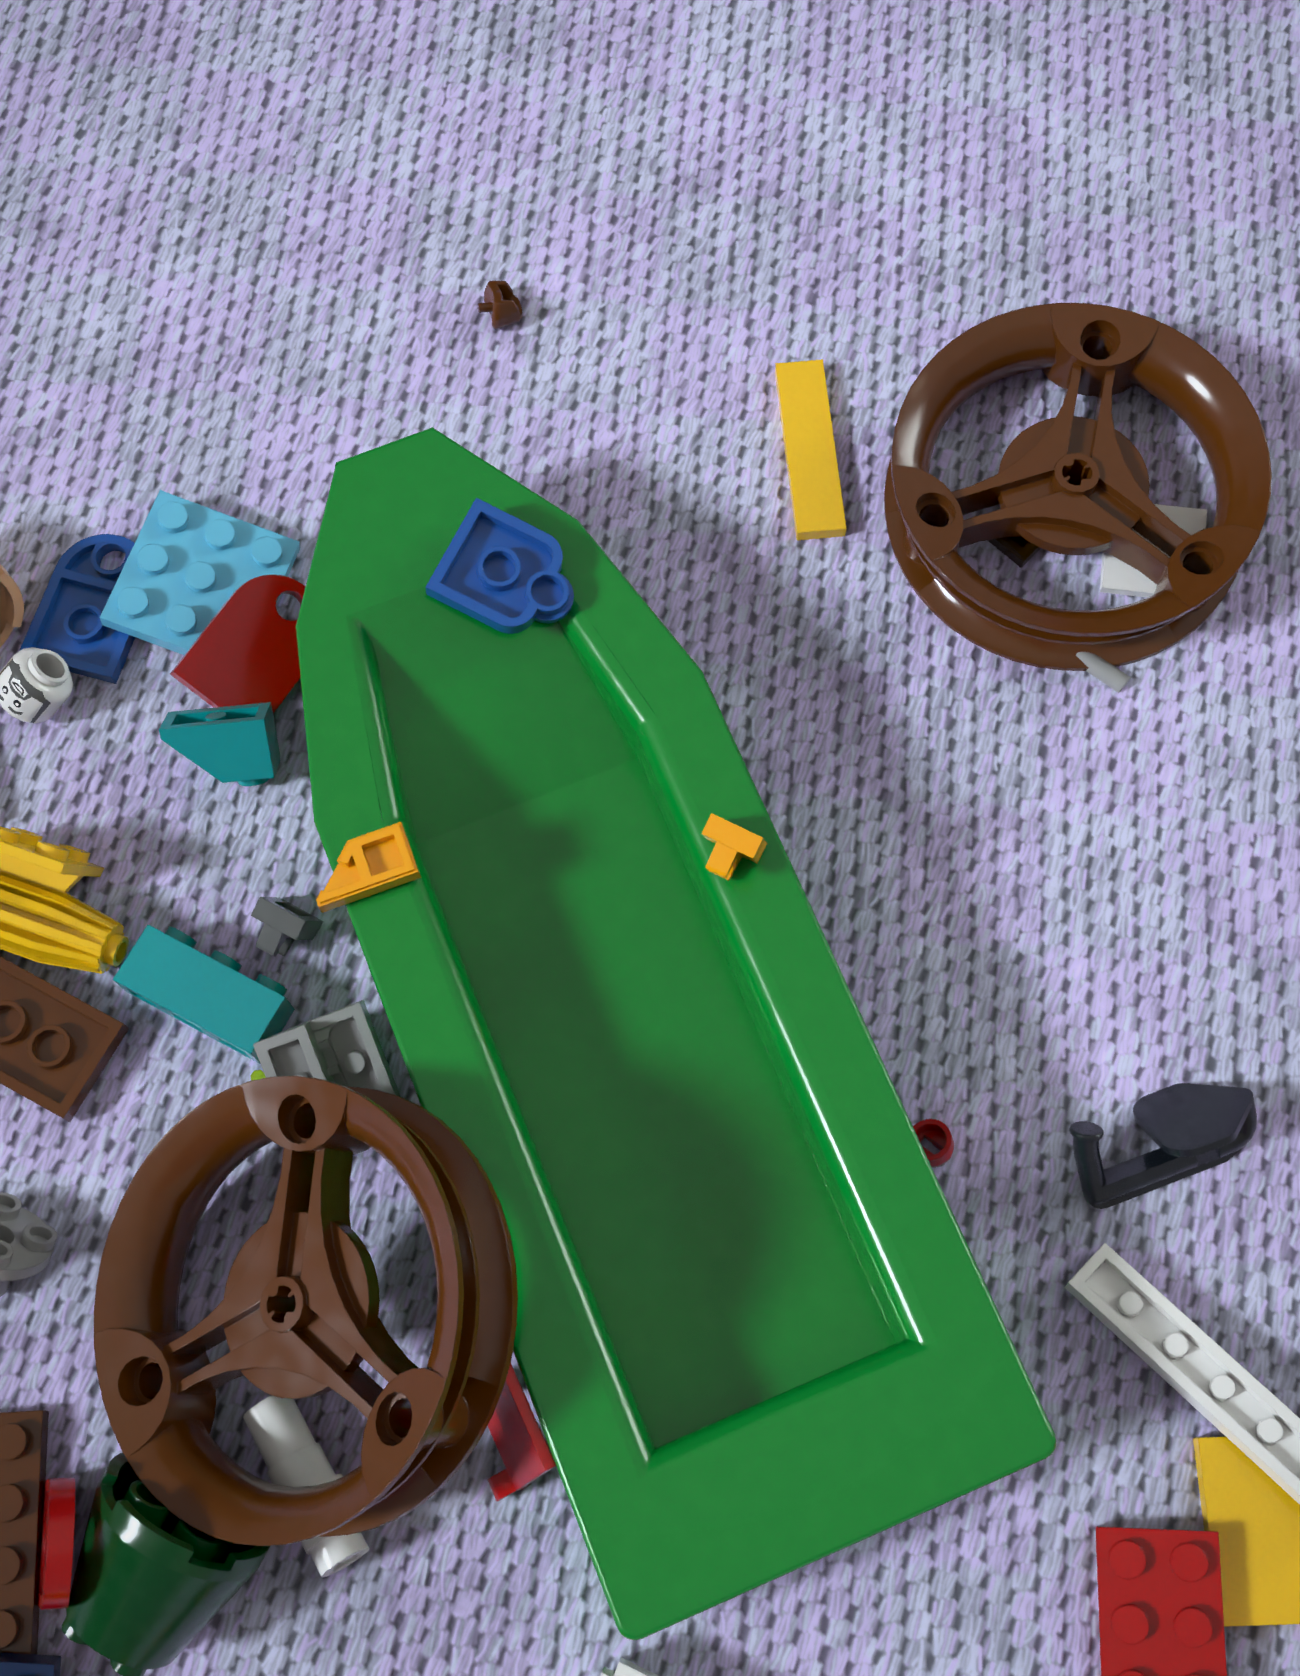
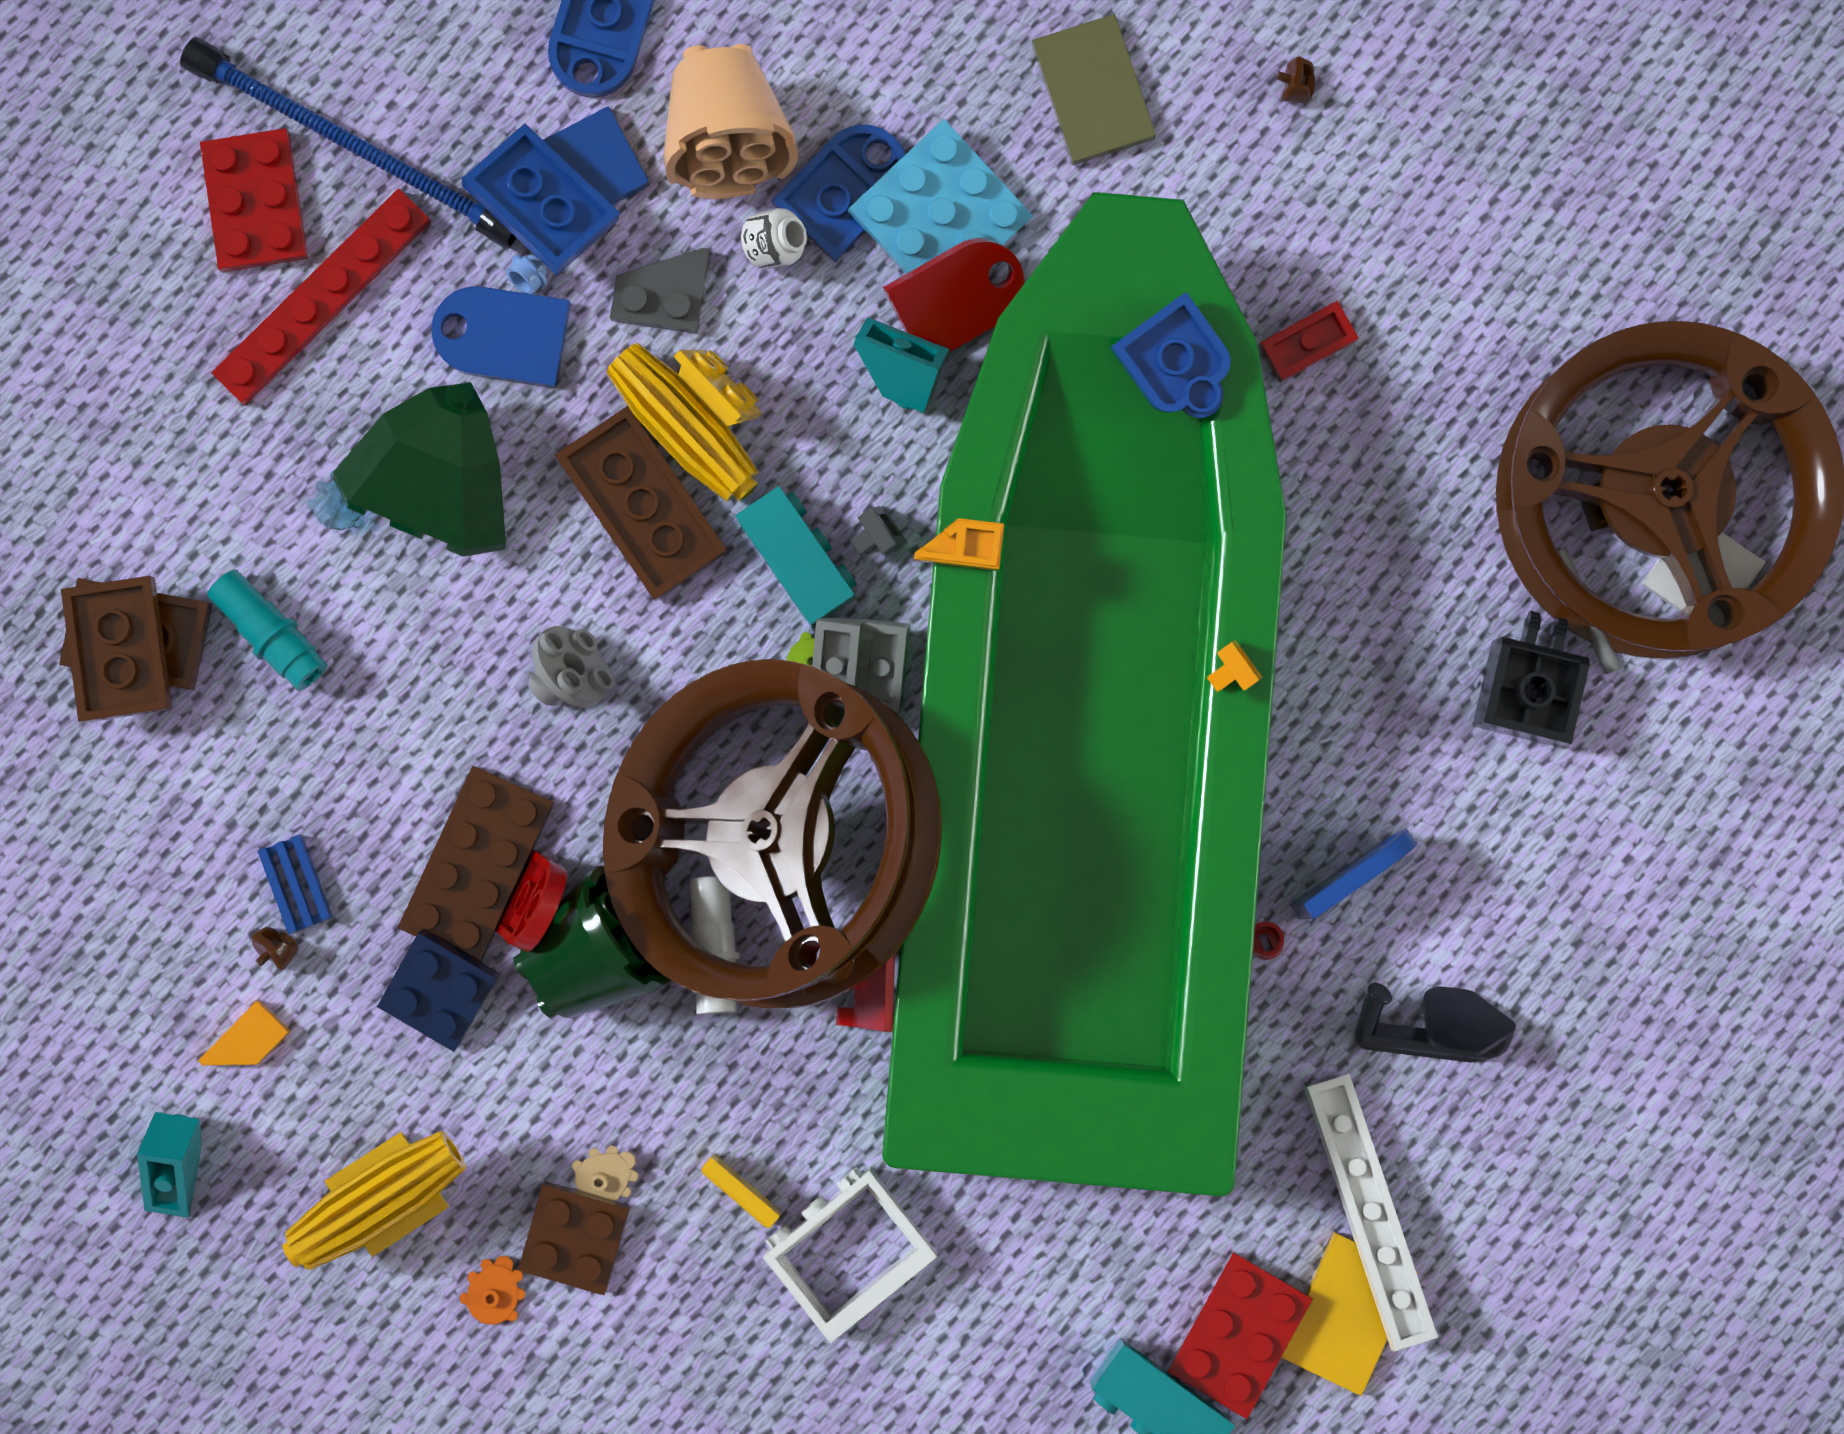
camera: 20 degrees right, 15 degrees up
(304, 404) = (1093, 89): none -> olive tile
(641, 524) = (1308, 341): none -> red plate
(810, 450) = (1480, 343): yellow tile -> none
(983, 1021) = (1354, 875): none -> blue tile
(1067, 710) = (1556, 676): none -> black hinge

